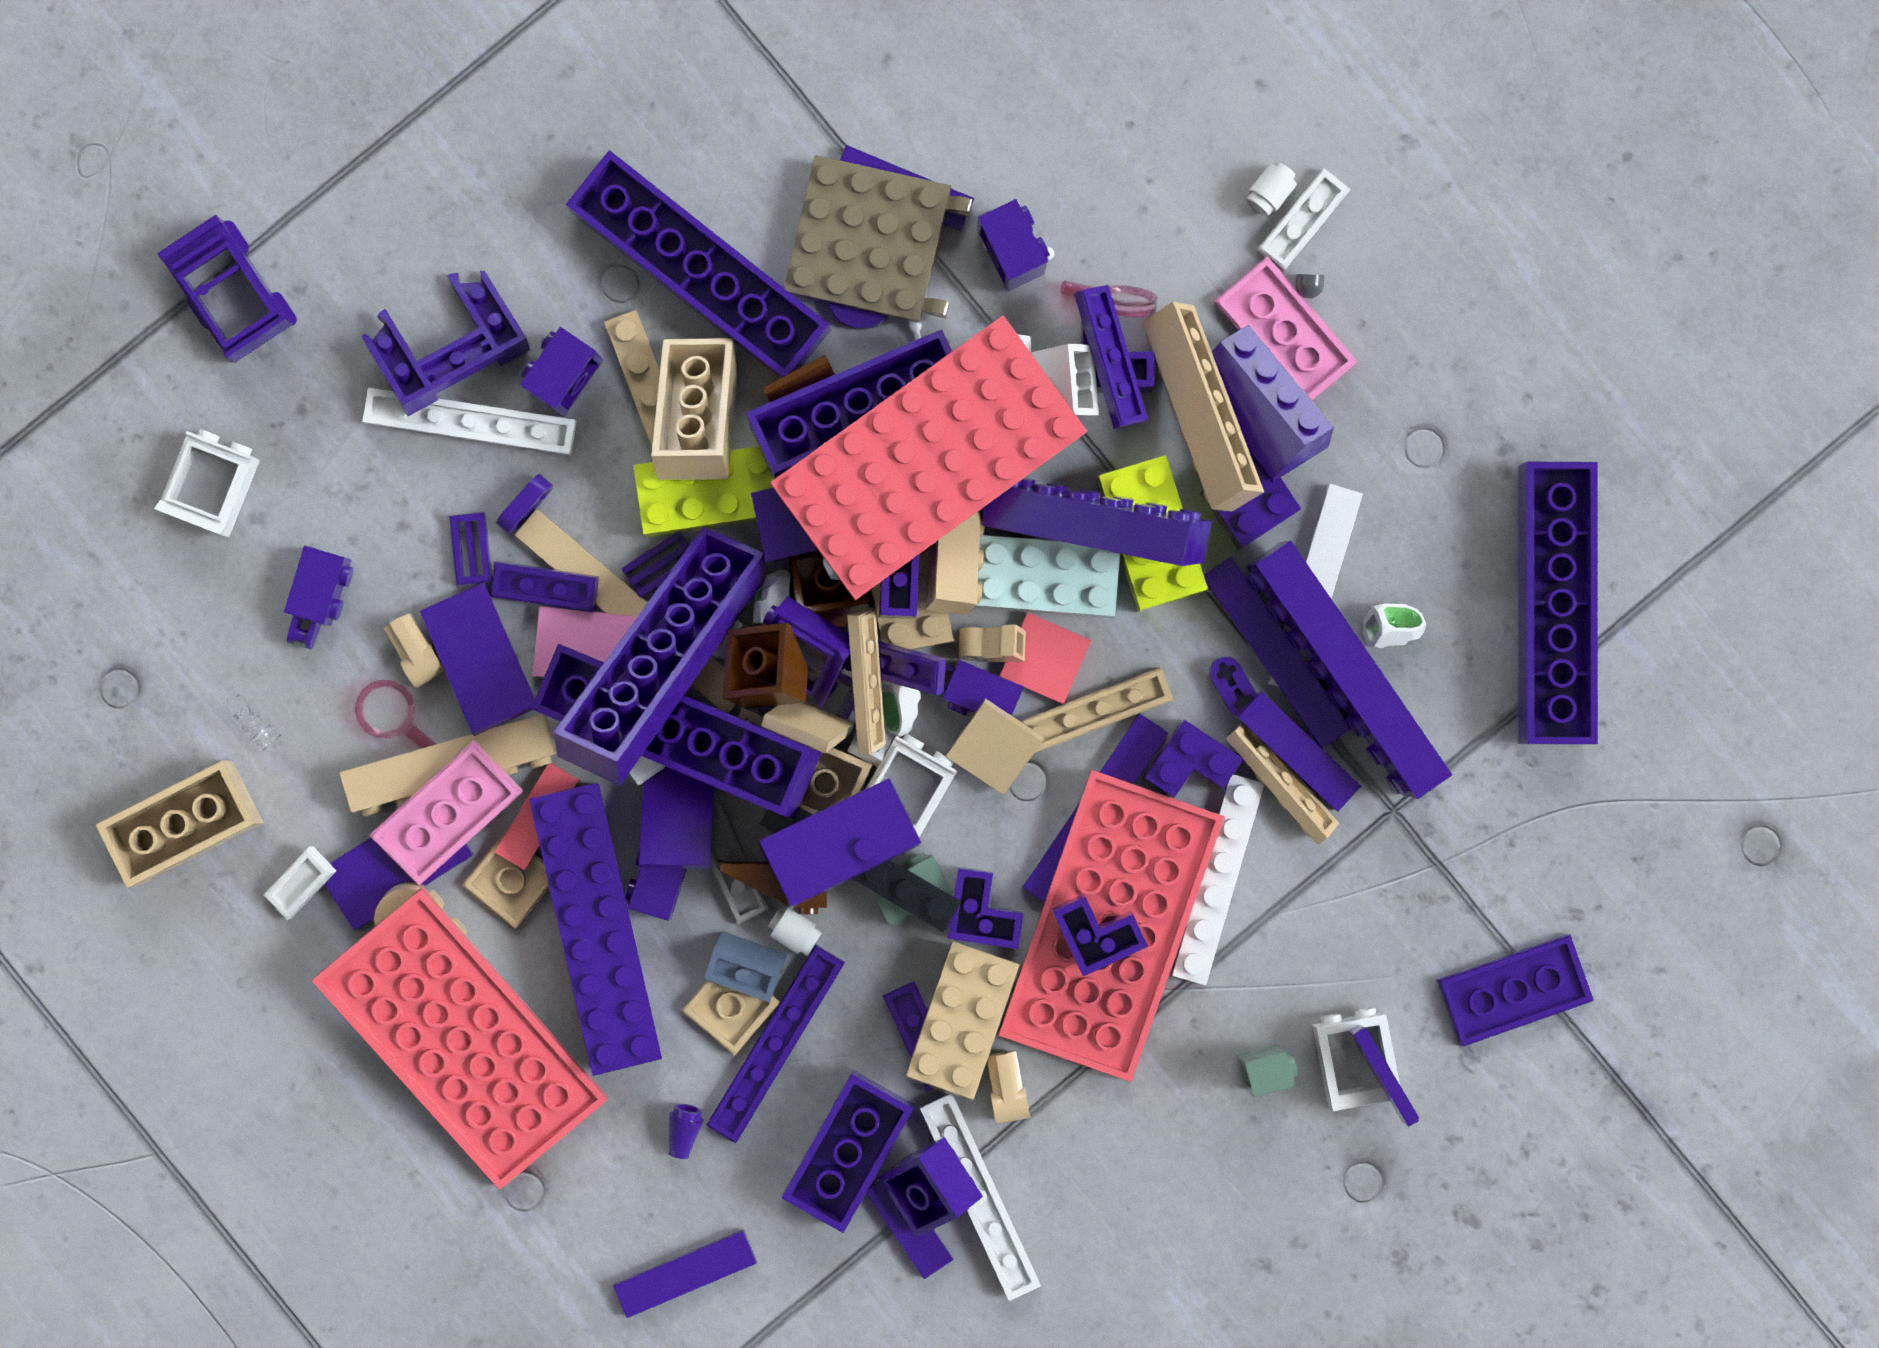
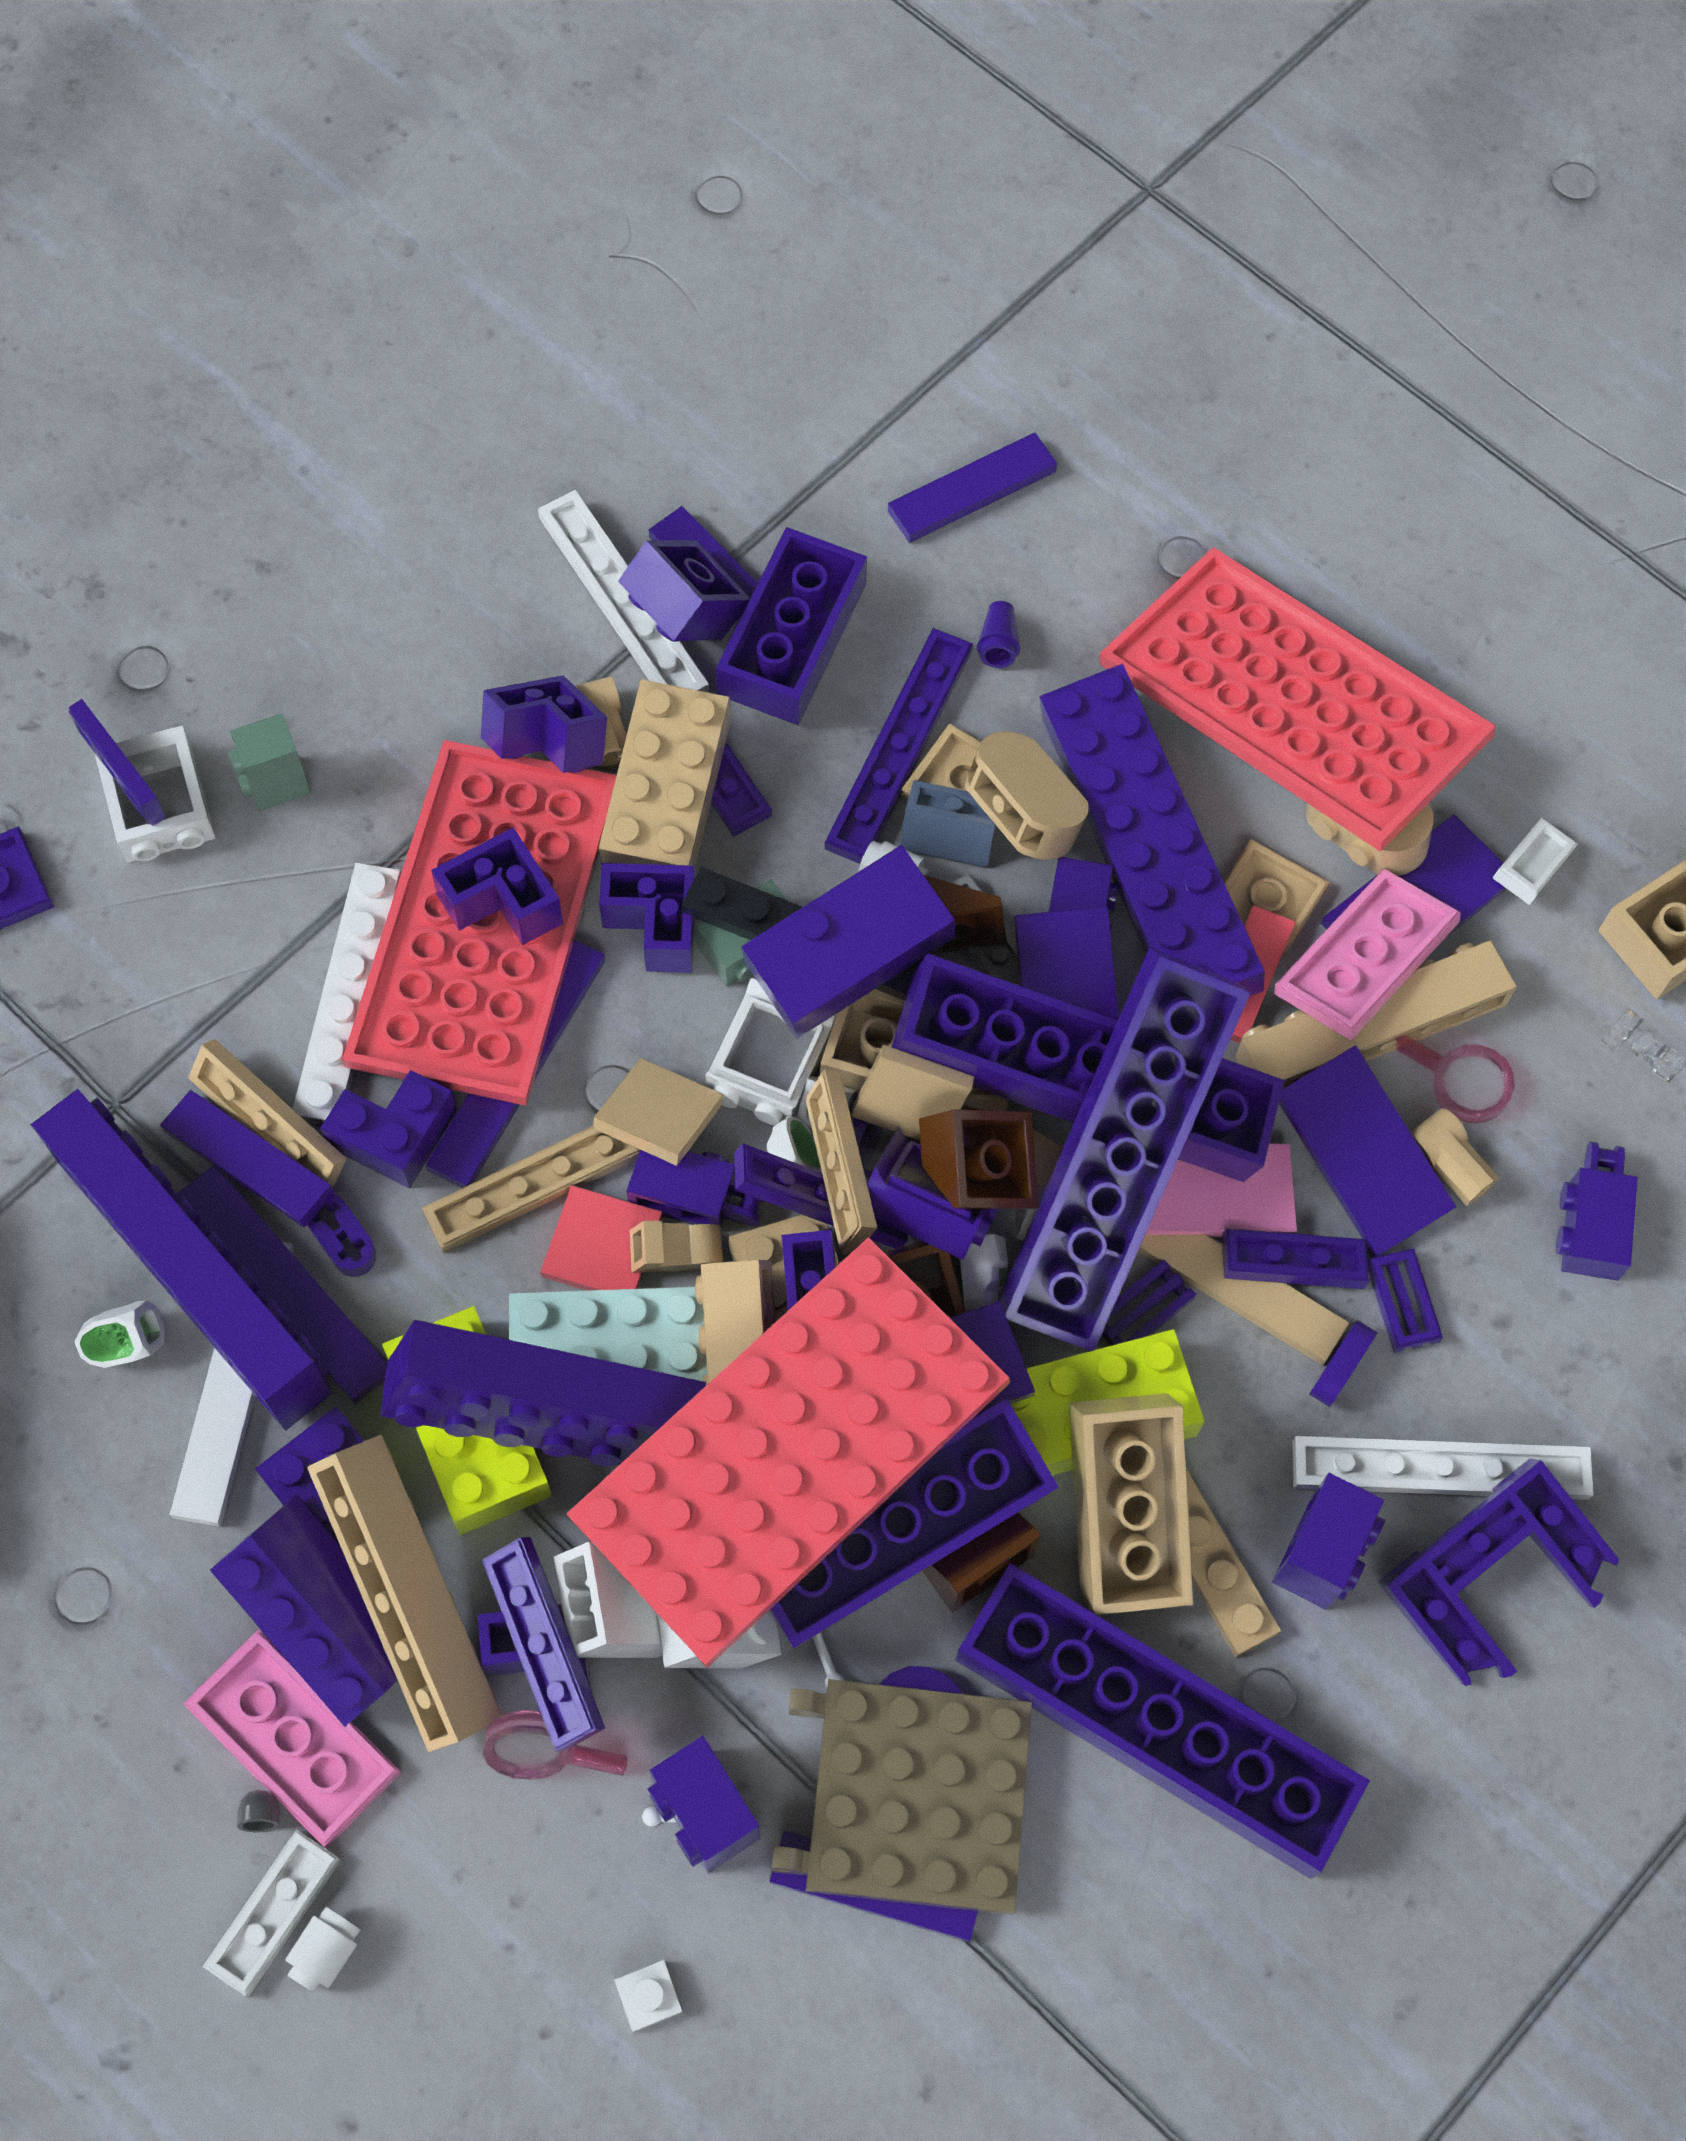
camera: 170 degrees right, 20 degrees down
(685, 971) = (1026, 795): none -> tan brick
(1049, 1085) = (547, 718): none -> dark purple brick
(1061, 137) = (648, 1996): none -> white plate

